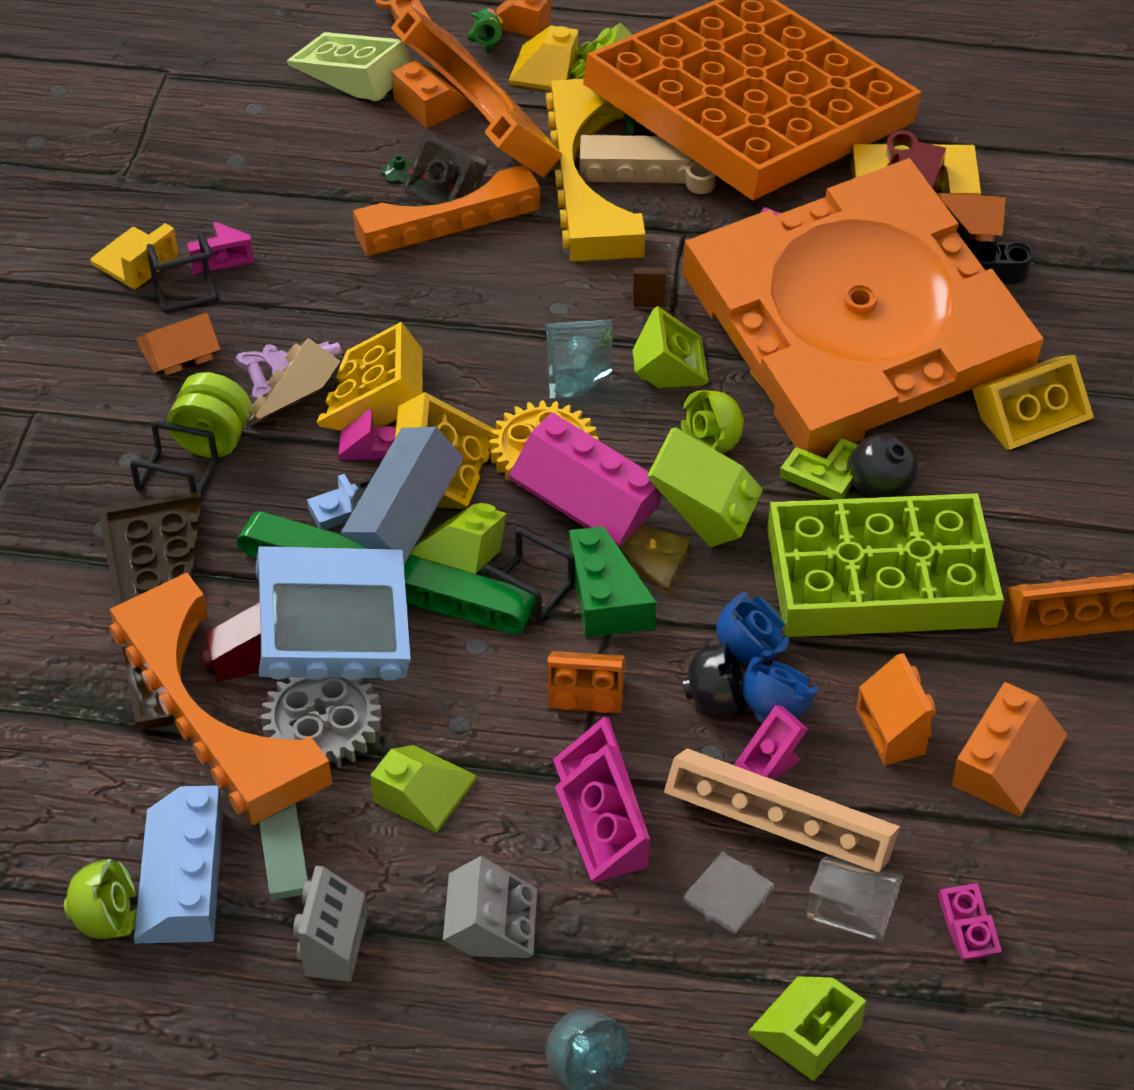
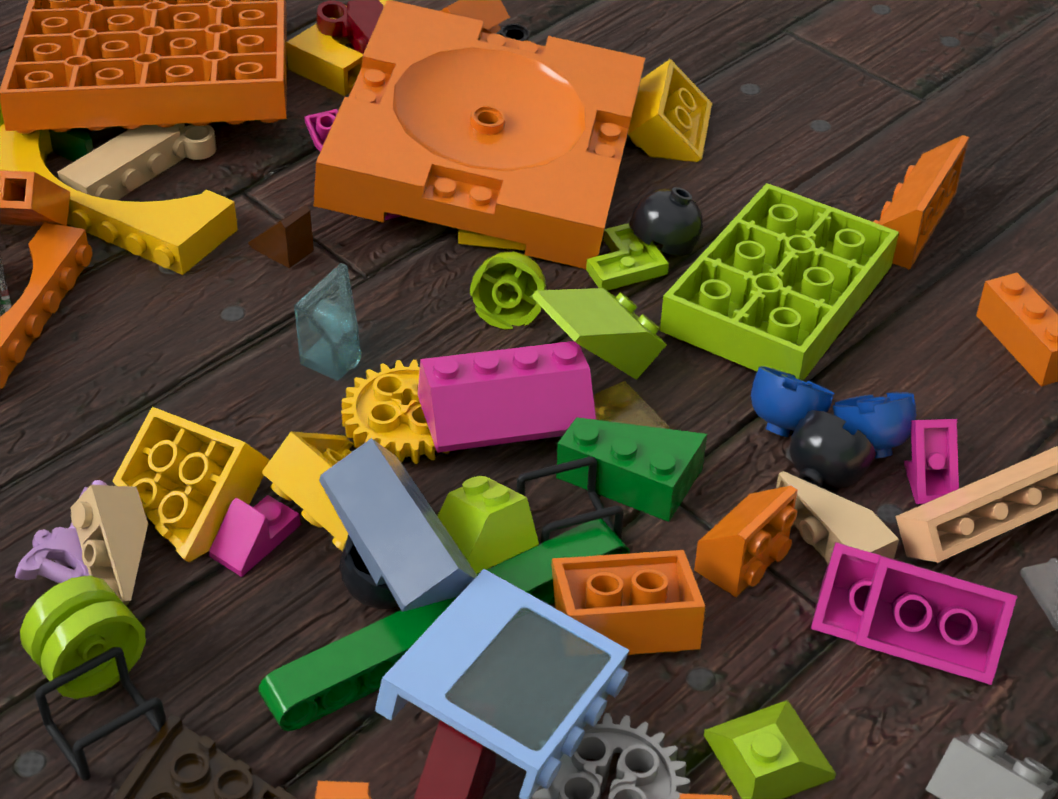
camera: 55 degrees left, 5 degrees down
(334, 506) = (311, 609): light blue bracket -> none
(467, 644) = (633, 599): none -> orange slope
(649, 731) = (831, 519): none -> tan slope
(669, 353) = (387, 274): lime slope -> none
(896, 711) = (960, 359): orange slope -> none

